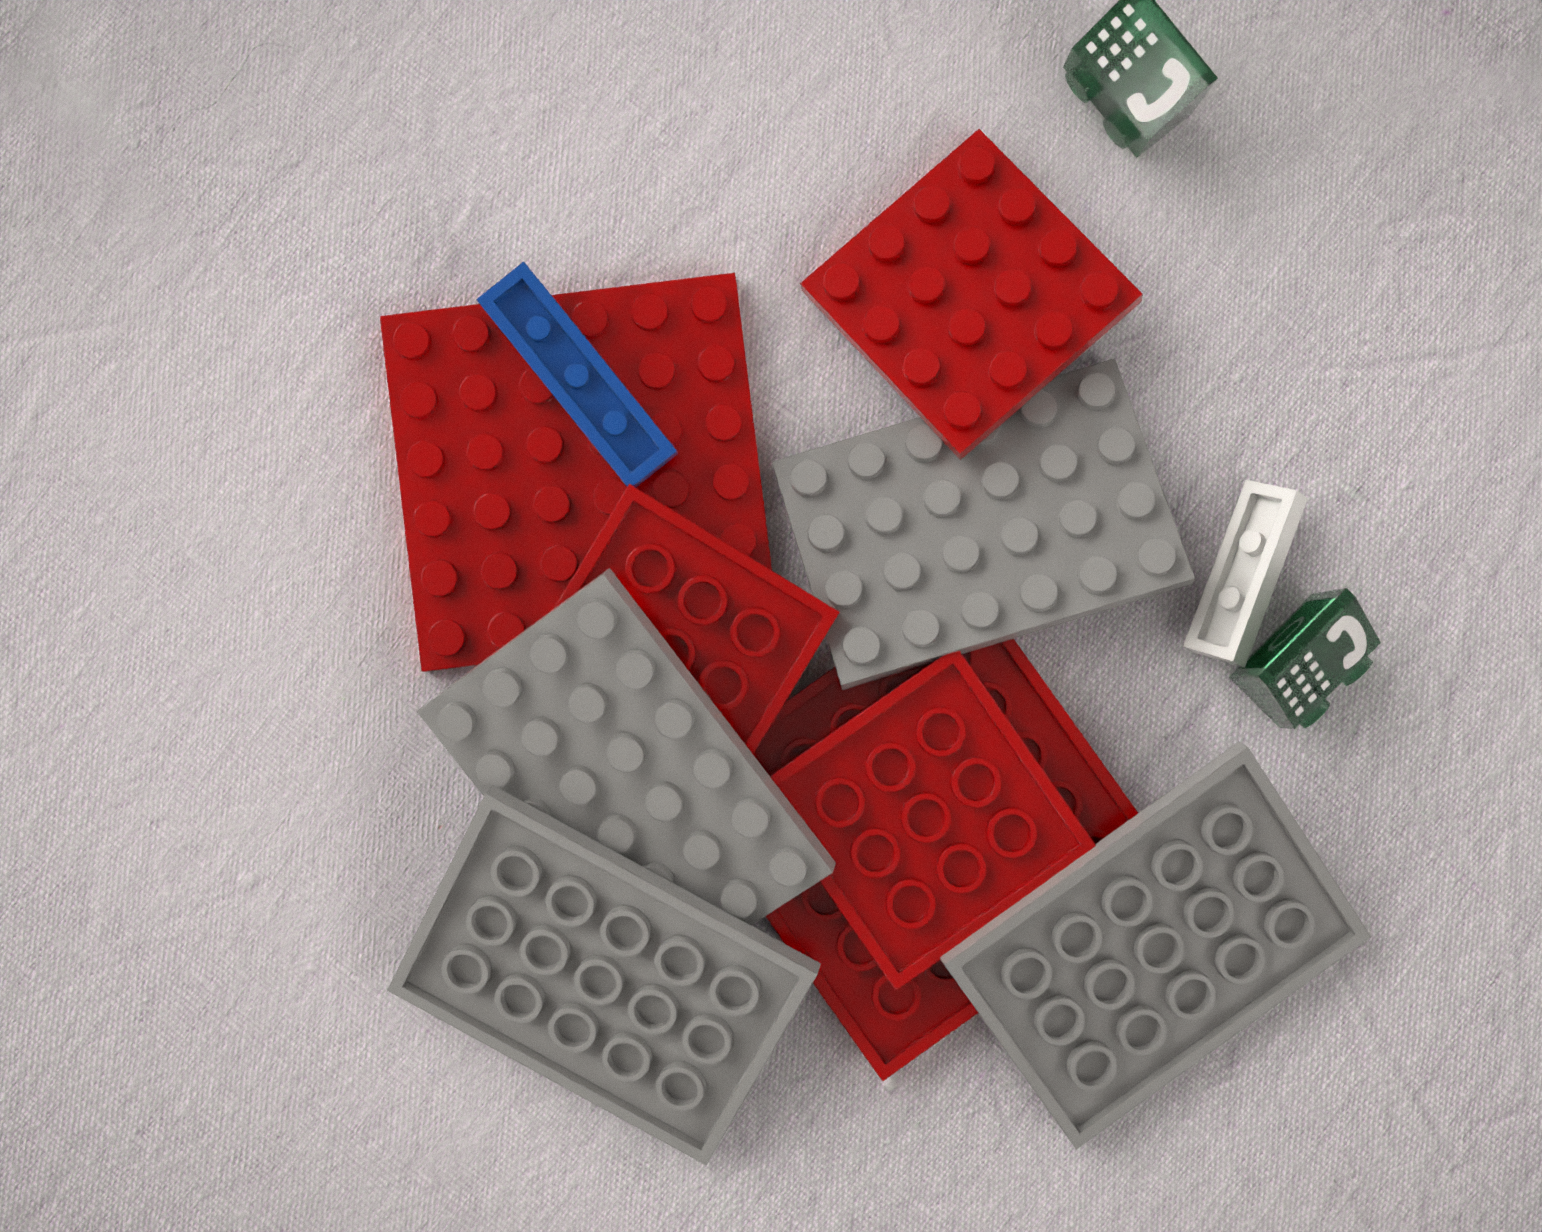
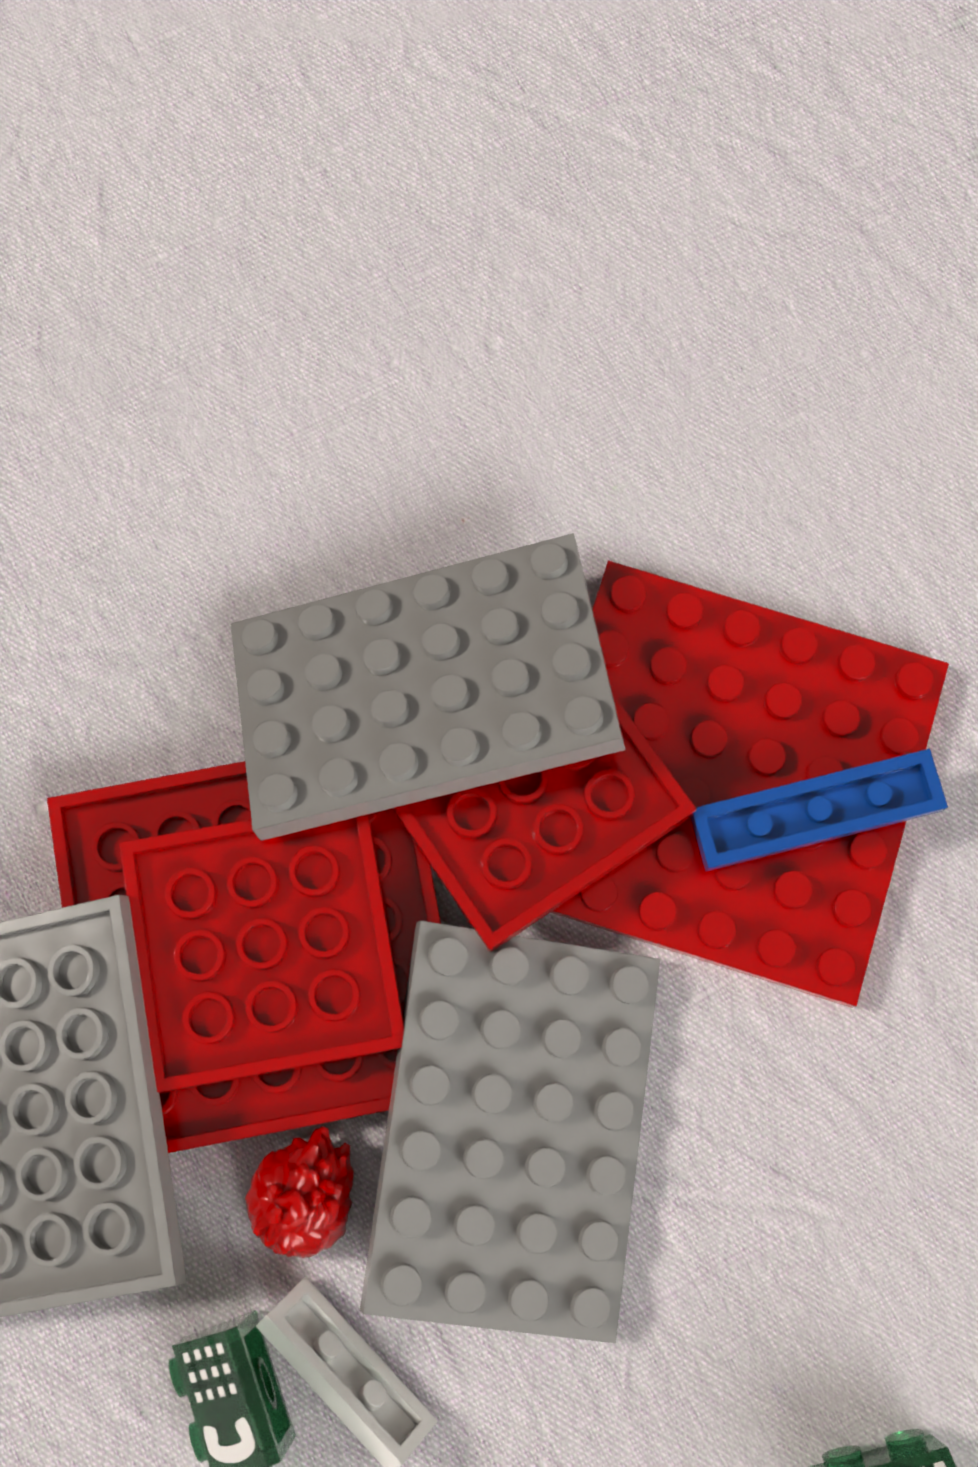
camera: 115 degrees right, 10 degrees down
(602, 975) = (263, 594): light grey plate -> none
(971, 293) = (740, 1229): red plate -> none
(1119, 680) = (302, 1196): none -> red hair

